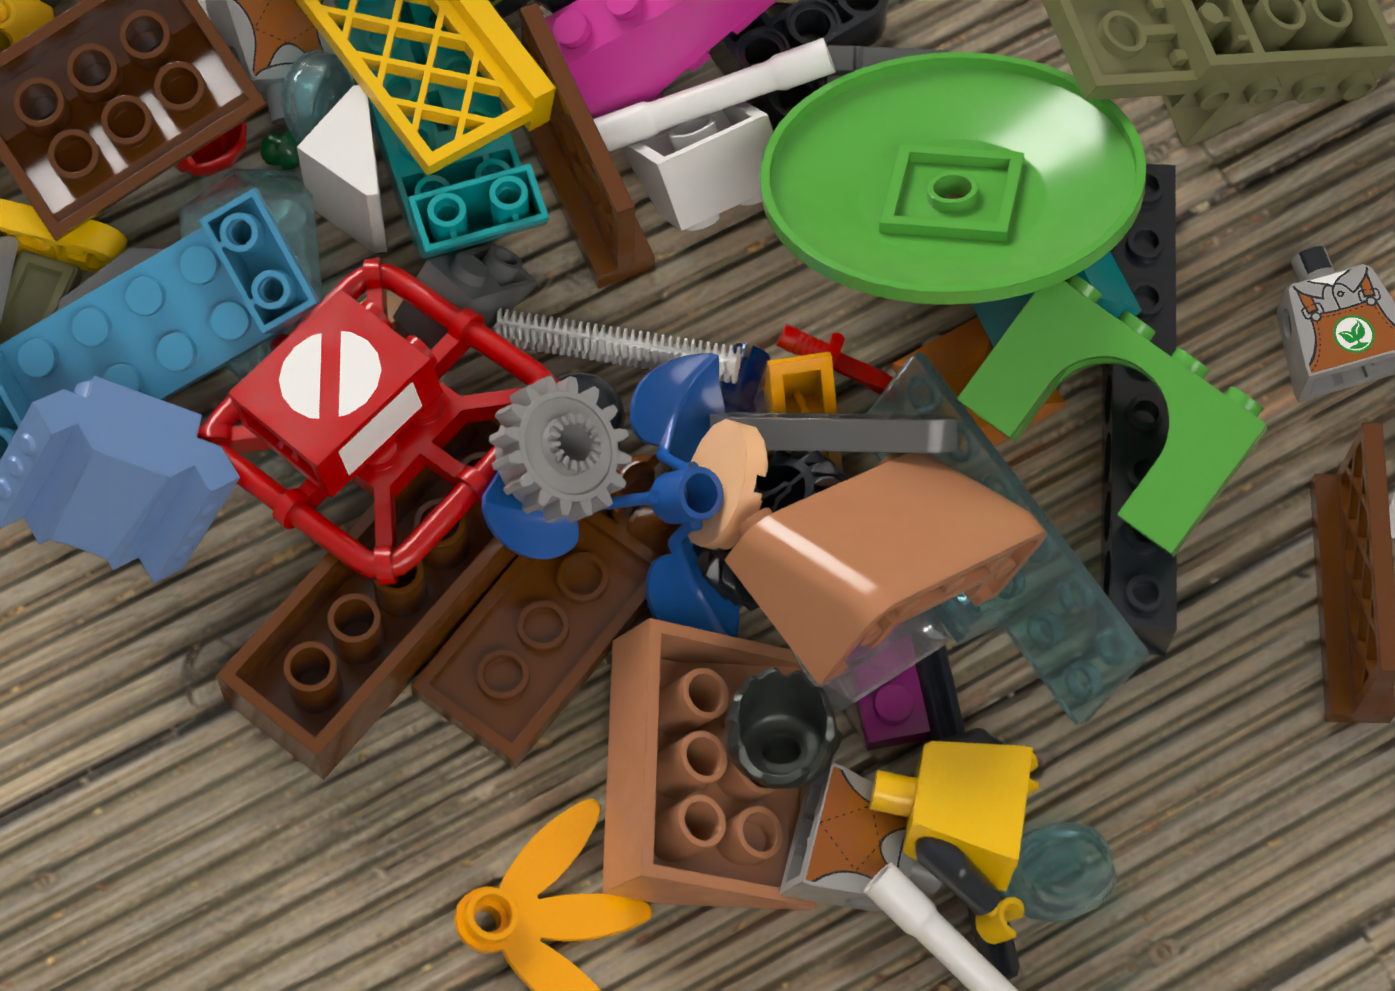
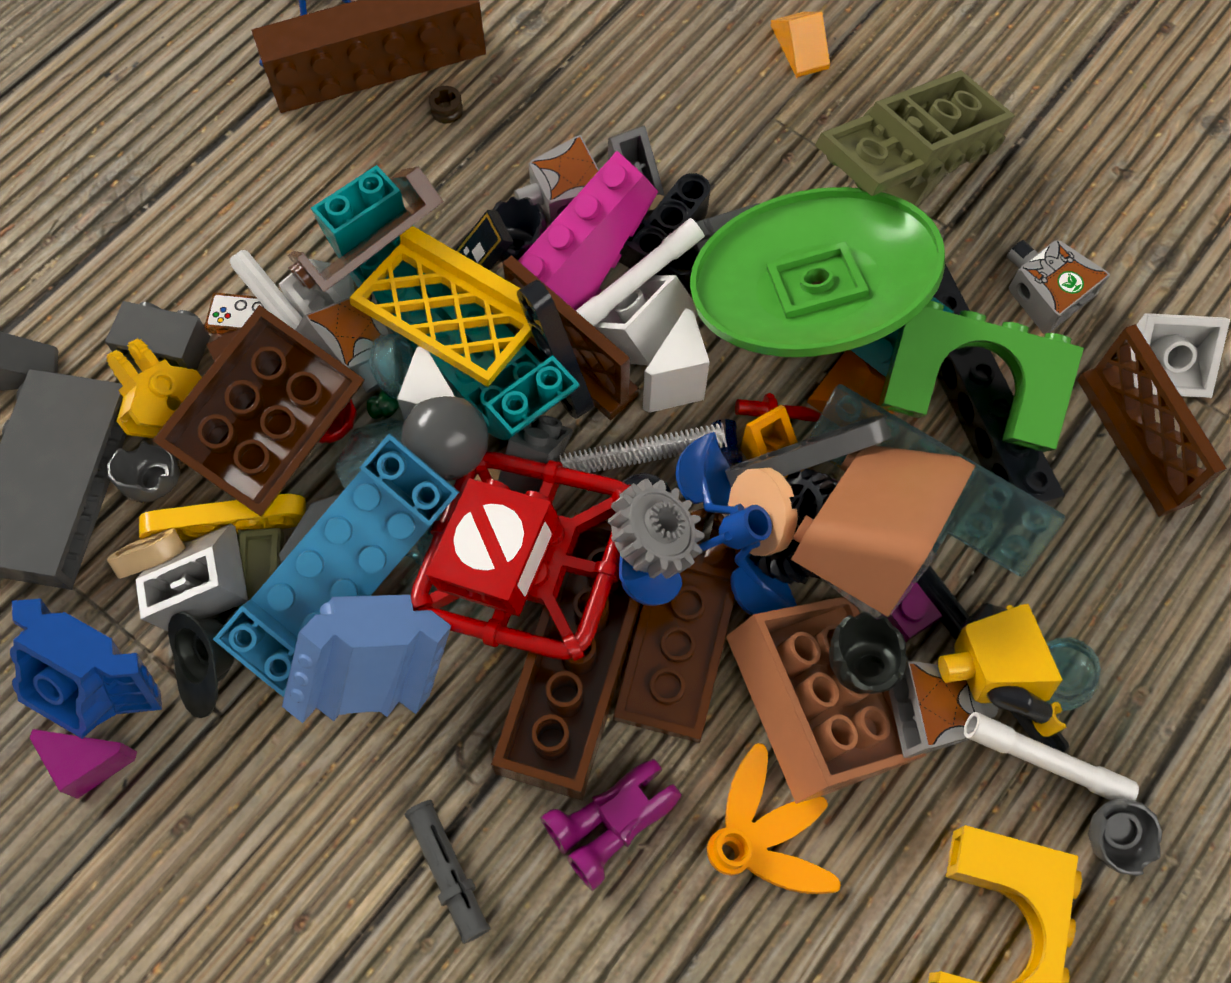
camera: 20 degrees left, 0 degrees up
(109, 820) = (447, 871): none -> dark grey pin
(338, 222) = (446, 435): none -> dark grey helmet
(367, 811) = (623, 813): none -> magenta piece
(545, 154) = (553, 340): none -> black beam
(709, 246) = (678, 368): none -> white slope

